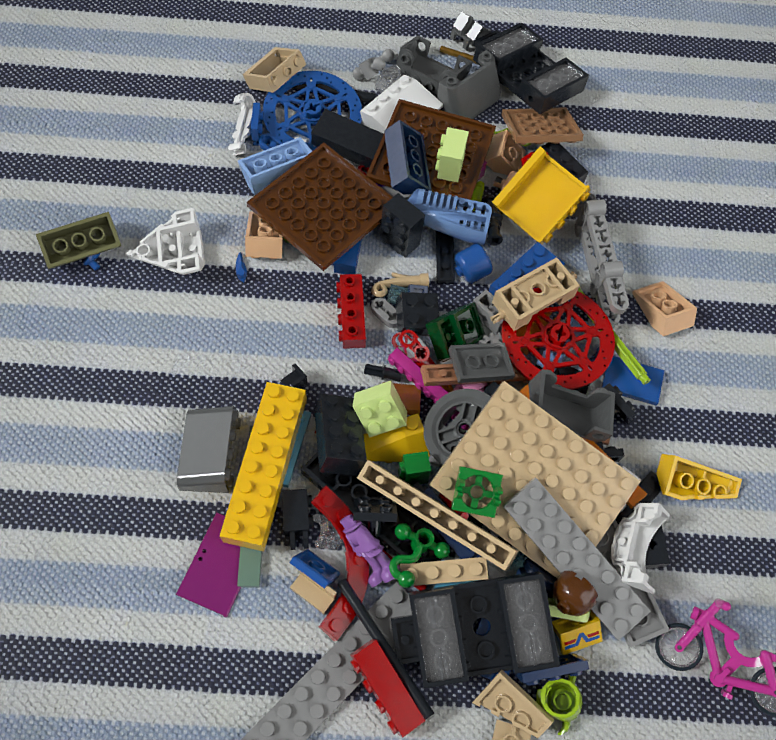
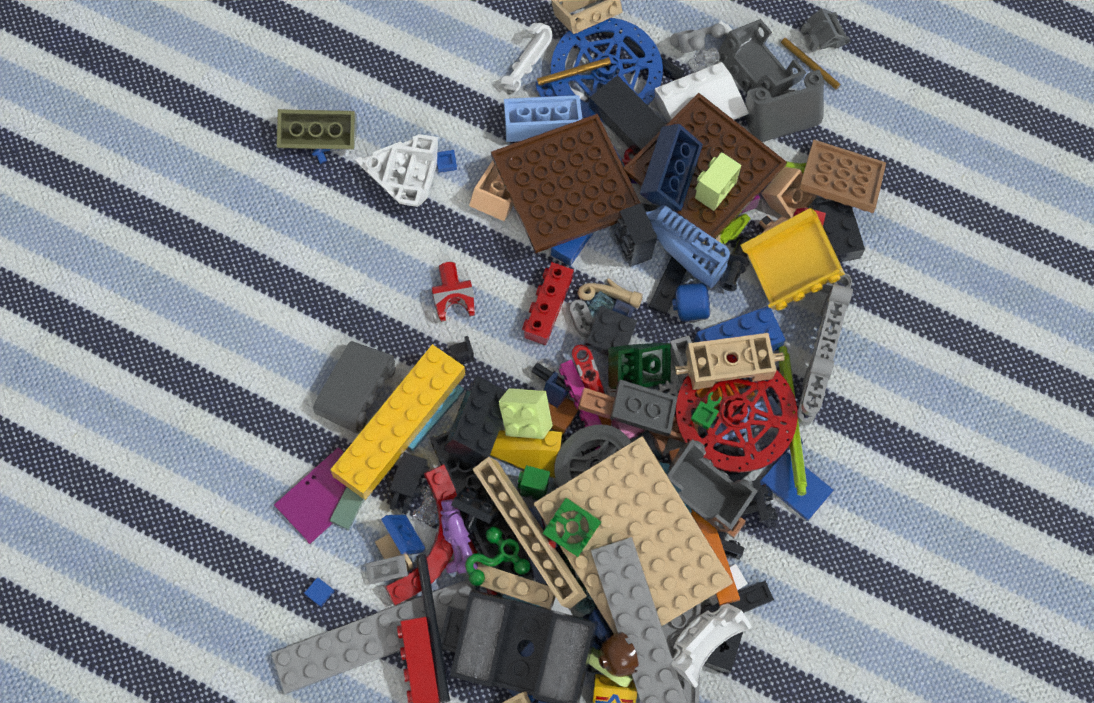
camera: 25 degrees right, 5 degrees up
(209, 229) = (446, 161): none -> blue tile
(241, 270) = (460, 215): blue bar -> none
(256, 123) = (541, 62): blue plate -> none
(256, 661) = (319, 592): none -> blue tile
(263, 333) = (452, 291): none -> red connector
(286, 120) = (573, 71): none -> pearl gold bar
(314, 609) = (386, 569): none -> light grey plate
(397, 379) = (555, 393): none -> dark blue panel
(519, 51) = (865, 78): black piece -> none
(535, 346) = (706, 413): none -> green plate
(665, 308) = (870, 426): light nougat slope -> none
(690, 480) = (797, 606): yellow wedge -> none

